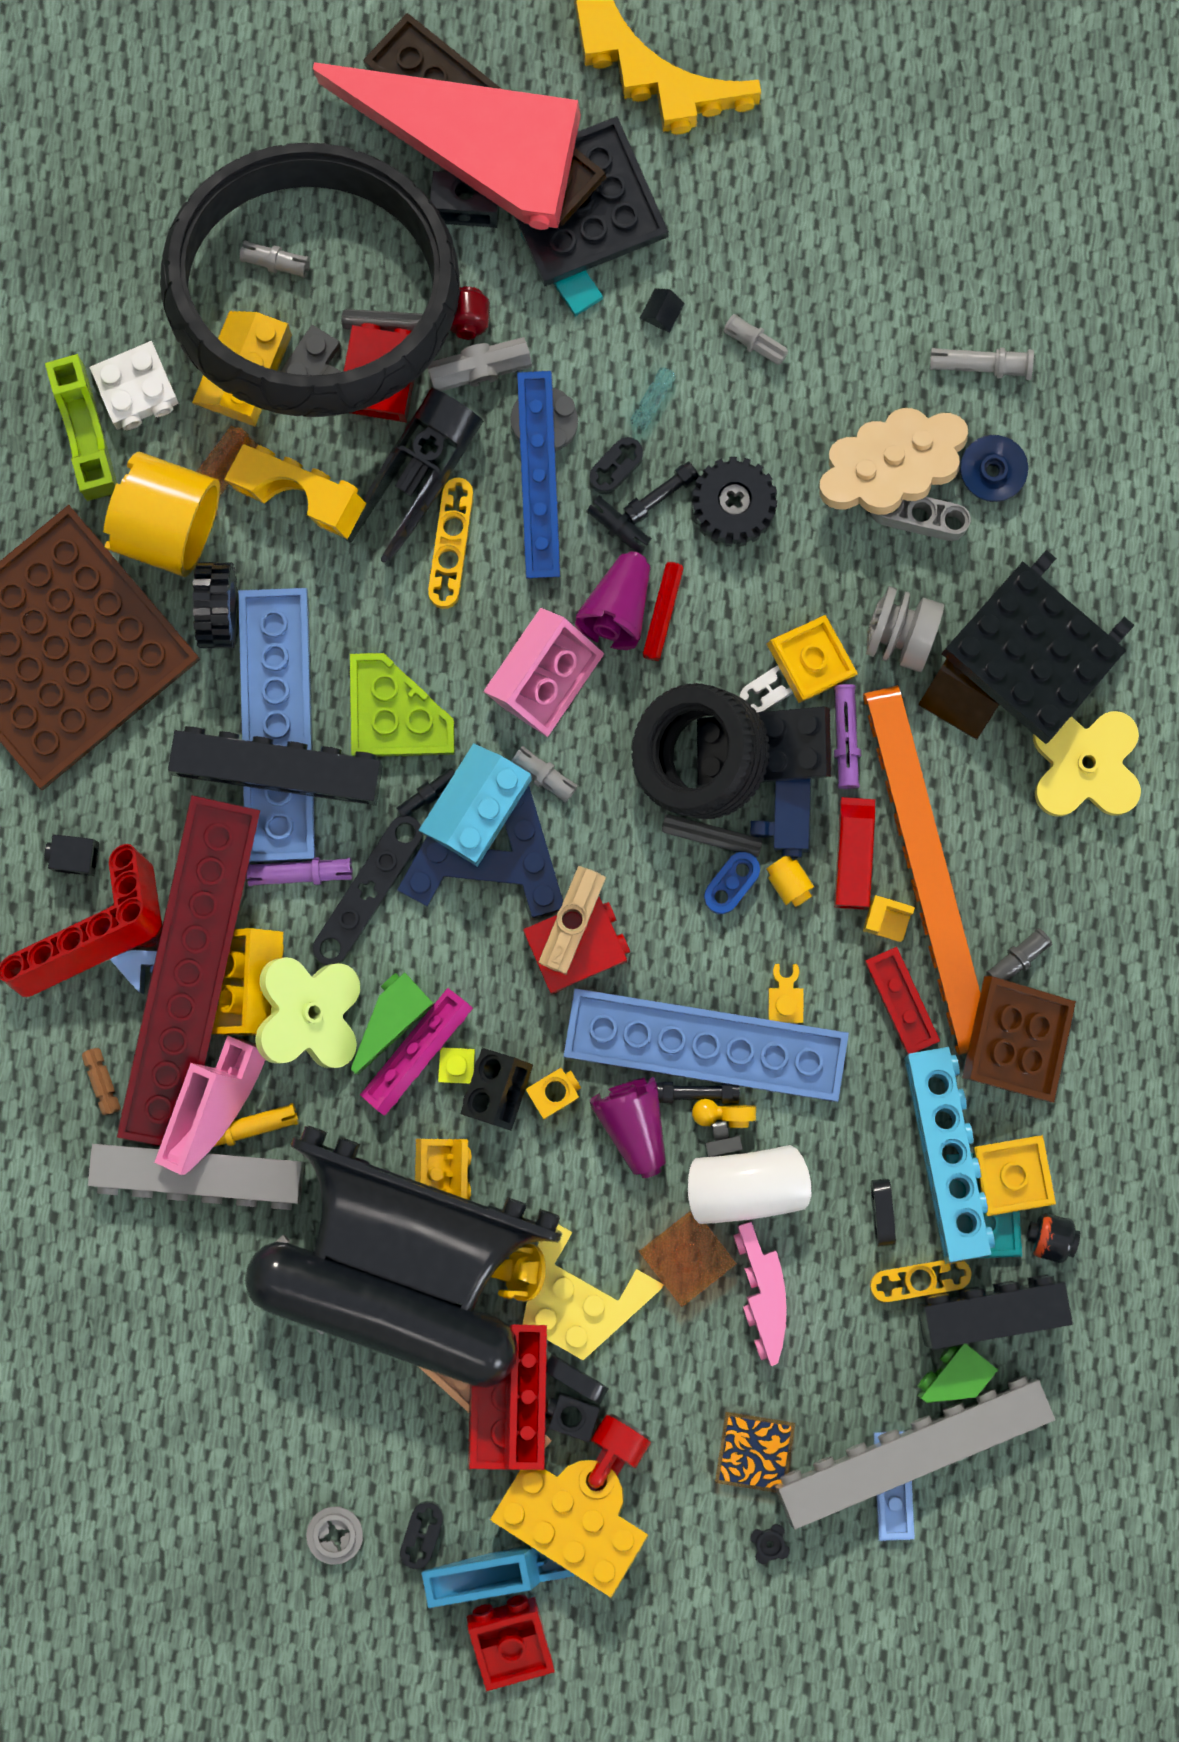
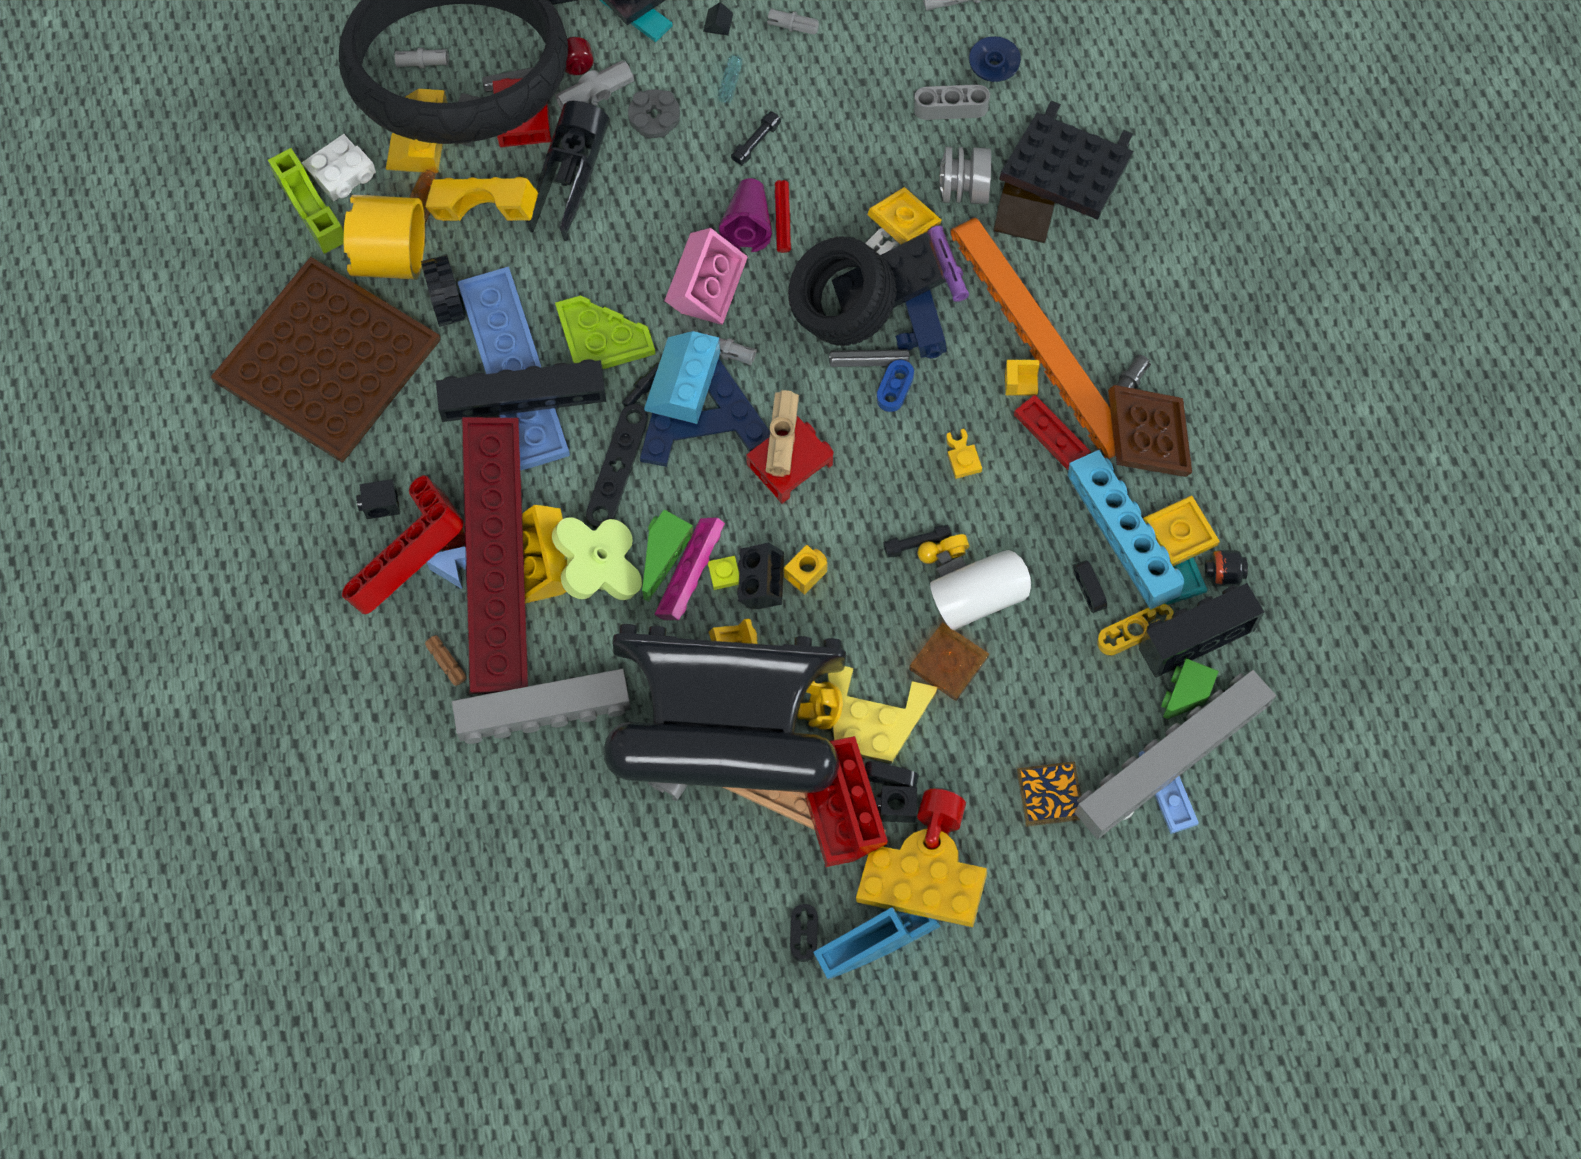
camera: 15 degrees left, 15 degrees down
(209, 1105) = (538, 644): bright pink slope -> none
(259, 1124) = (571, 661): yellow pin -> none
(295, 872) = (561, 465): medium lavender pin -> none
(327, 1550) = (734, 939): light grey gear -> none
(450, 543) = (609, 211): yellow beam -> none
(510, 1642) = (902, 994): red plate -> none
(538, 474) = (661, 145): blue plate -> none
(610, 460) = (721, 131): black beam -> none
(618, 525) = (730, 166): black pin -> none
(634, 1124) = (876, 573): magenta cone -> none
(706, 1045) = (912, 504): medium blue plate -> none
(730, 523) = (812, 142): black bush -> none
(765, 1553) = (1091, 854): black plate -> none
(768, 1306) = (1024, 677): bright pink slope -> none
(790, 881) = (939, 371): yellow brick -> none
(854, 853) = (981, 341): red piece -> none
(893, 461) = (920, 70): tan plate -> none
(1107, 784) = (1133, 234): light yellow plant -> none

